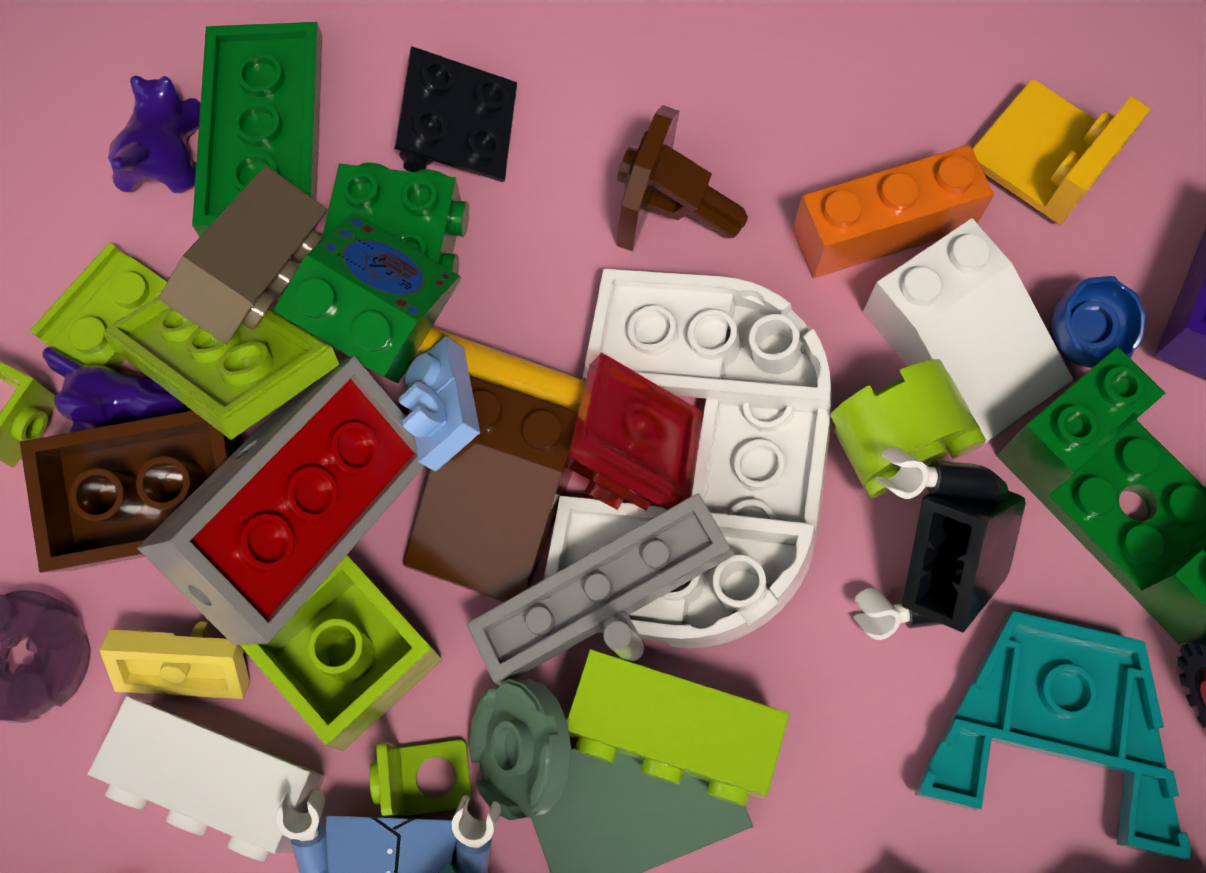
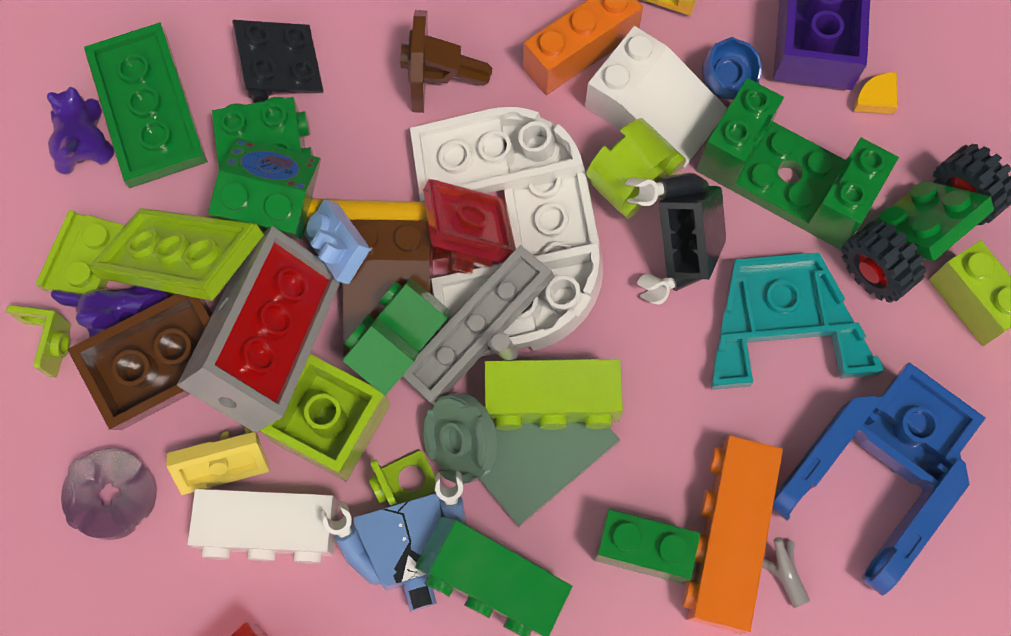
camera: 20 degrees left, 0 degrees up
(245, 255) = (176, 186): dark tan brick -> none
(464, 575) = (389, 344): none -> green brick

